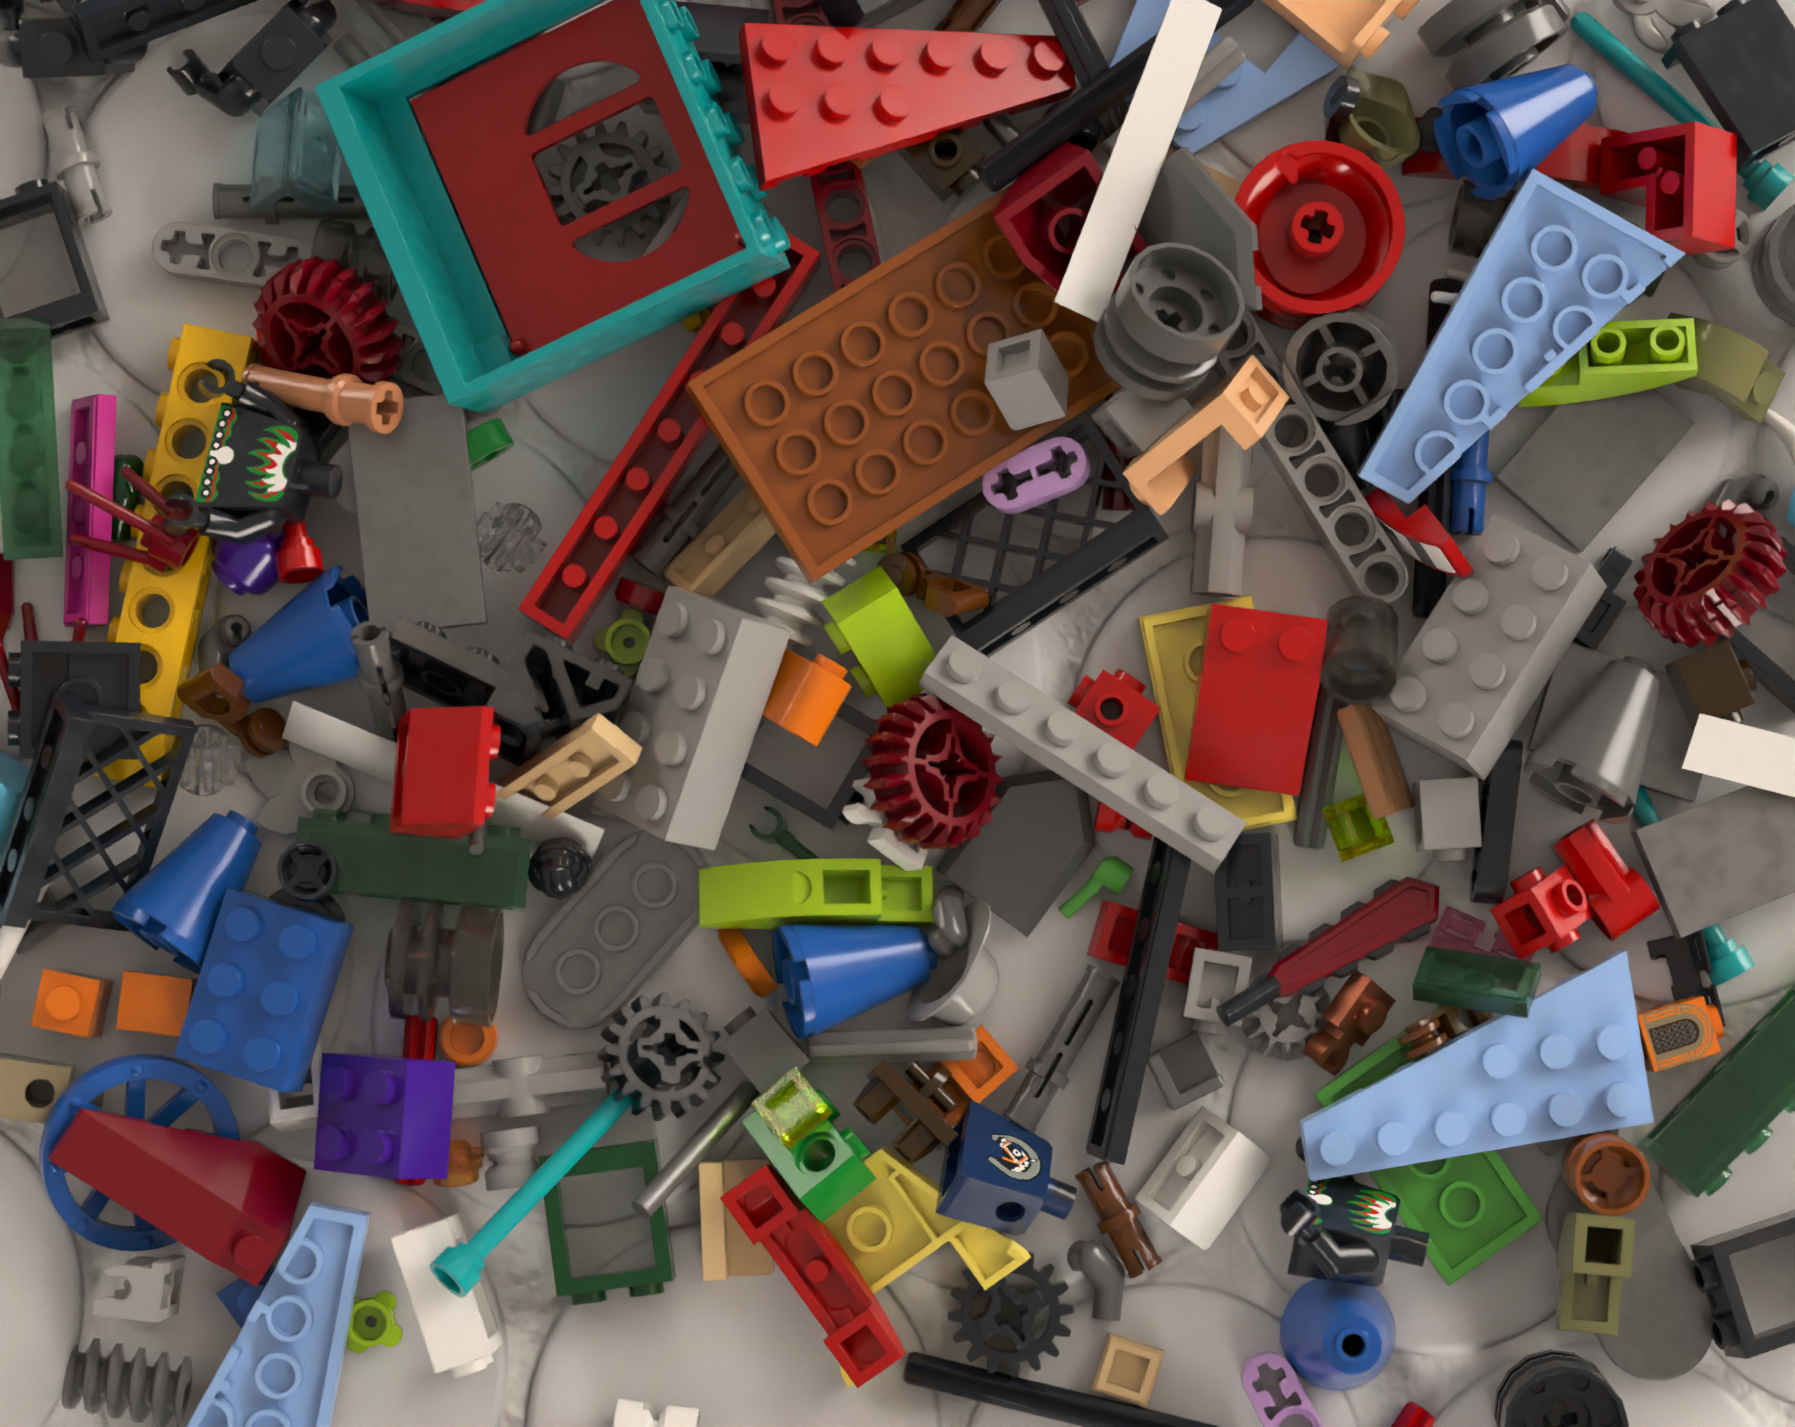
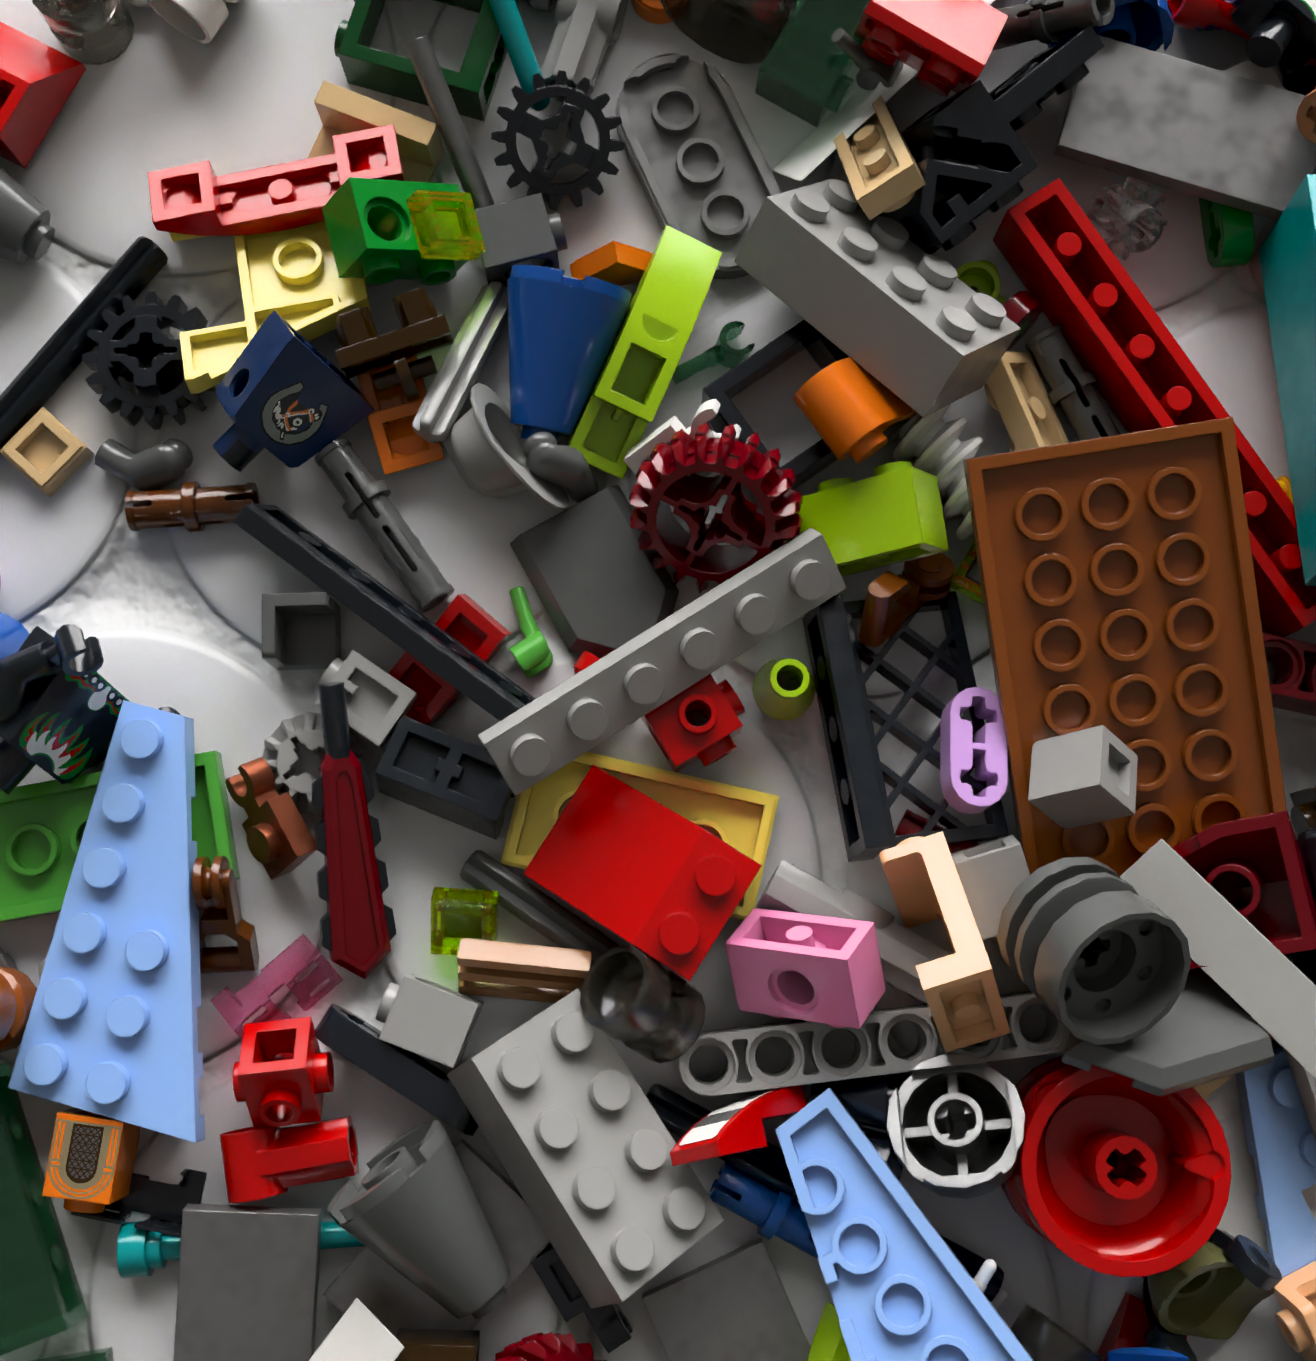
camera: 110 degrees right, 5 degrees down
(559, 868) = (781, 129): black piece -> none
(1042, 668) = (779, 702): none -> lime cone
(1204, 1178) = (189, 604): white panel -> none
(1272, 534) = (806, 967): none -> bright pink brick
(1476, 981) = (242, 968): clear green plate -> none

